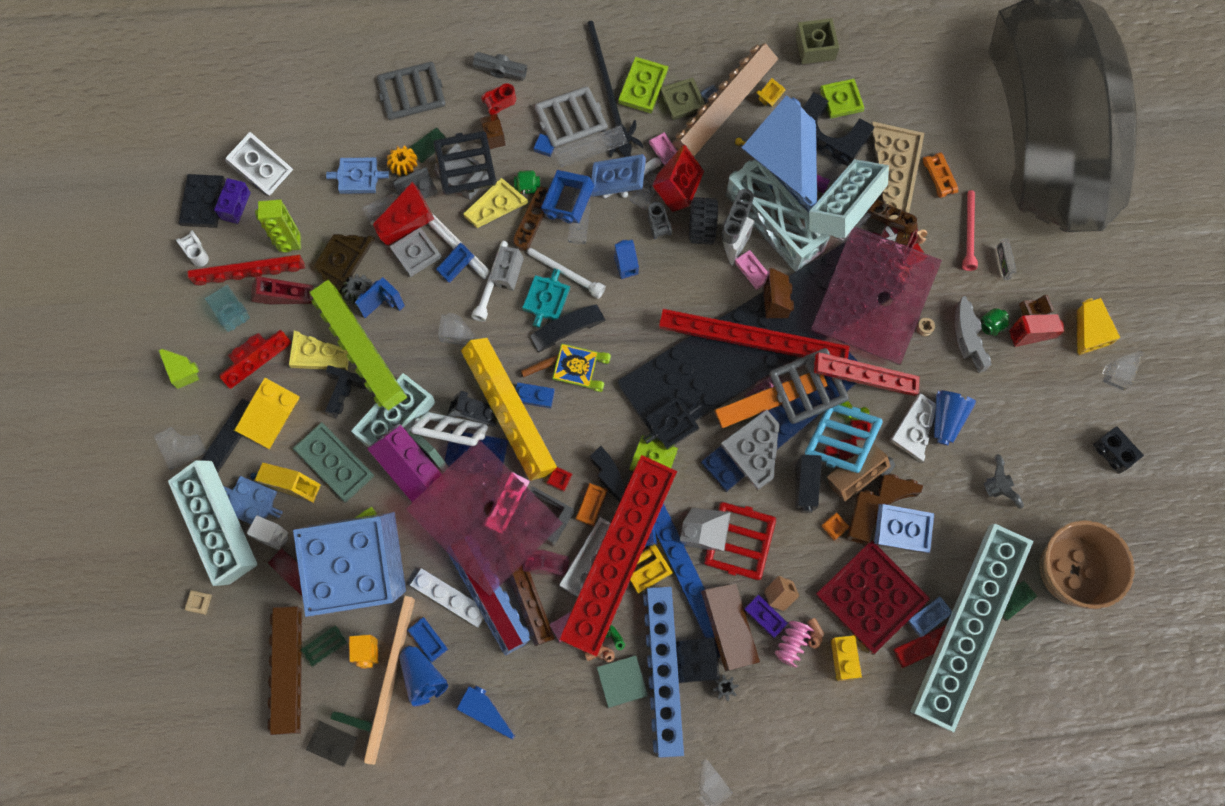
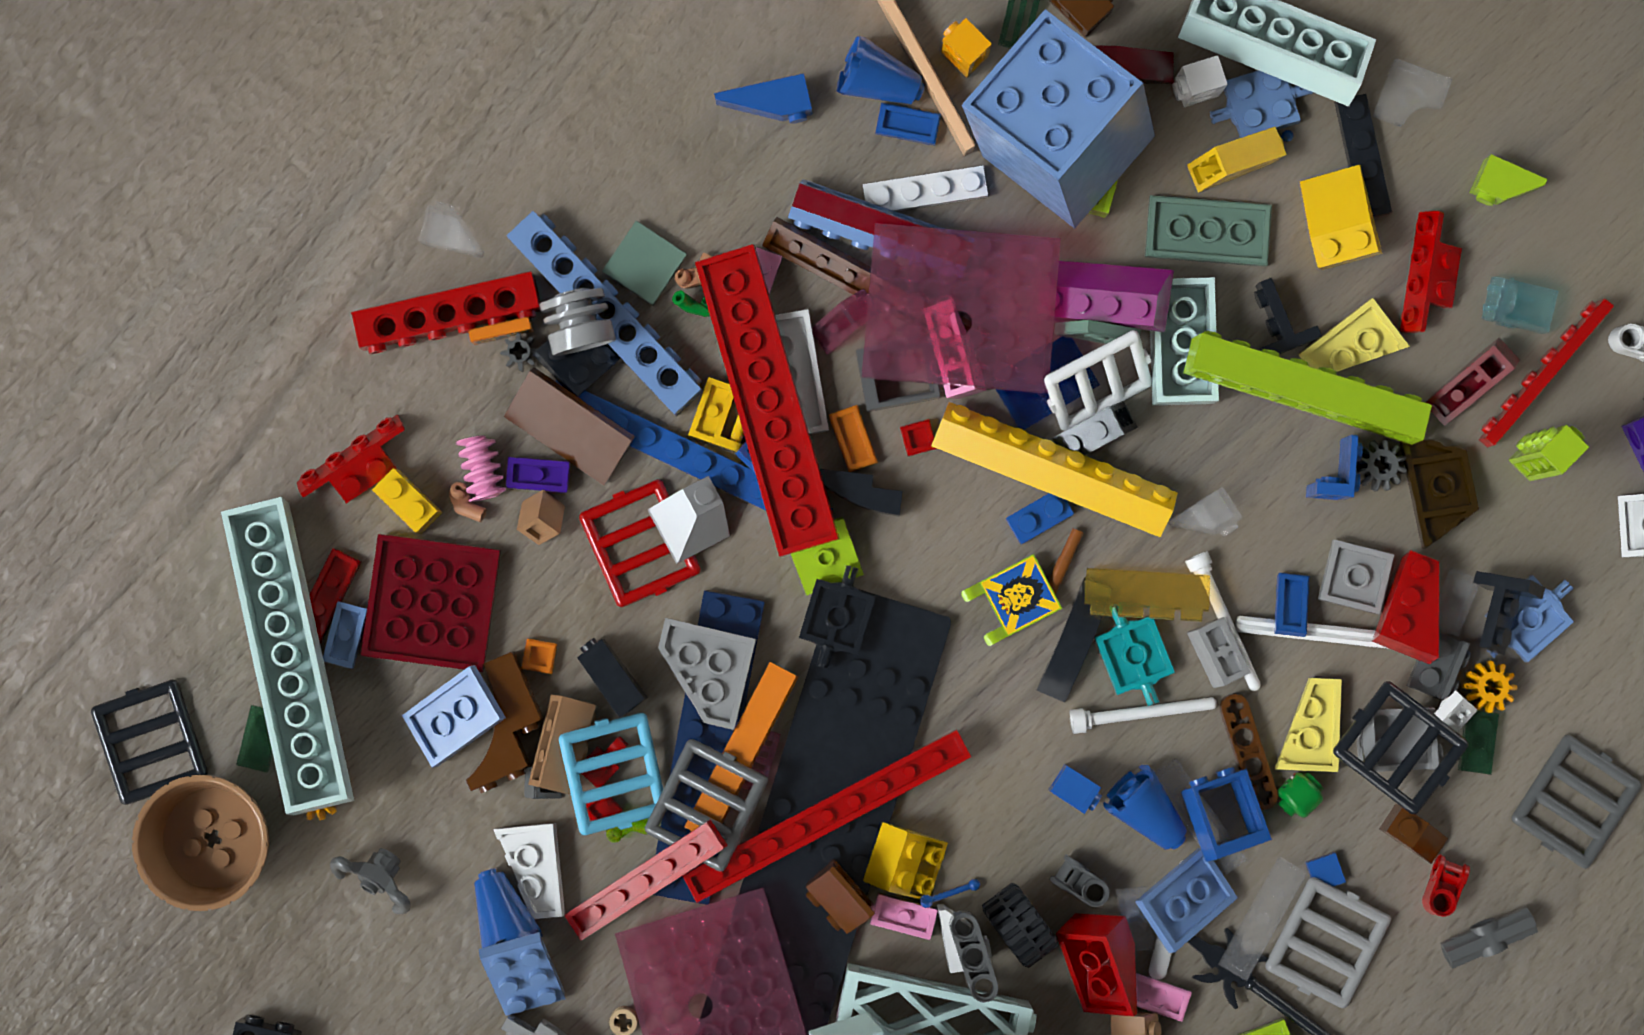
camera: 145 degrees right, 15 degrees up
(363, 183) = (1503, 607): none -> black bracket
(427, 161) = (1455, 711): none -> white bracket
(519, 323) = (1152, 590): none -> clear yellow windscreen
(601, 229) = (1146, 807): none -> blue cone
(684, 671) = (577, 321): none -> light grey wheel
(726, 708) = (500, 330): none -> orange tile
(733, 291) = (905, 861): none -> yellow slope
(737, 266) = (926, 900): none -> blue hinge
(799, 763) = (370, 320): none -> red brick
(858, 700) = (356, 466): none -> red bracket
(962, 379) = (522, 974): none -> medium blue plate
(1102, 645) = (109, 739): none -> black bar

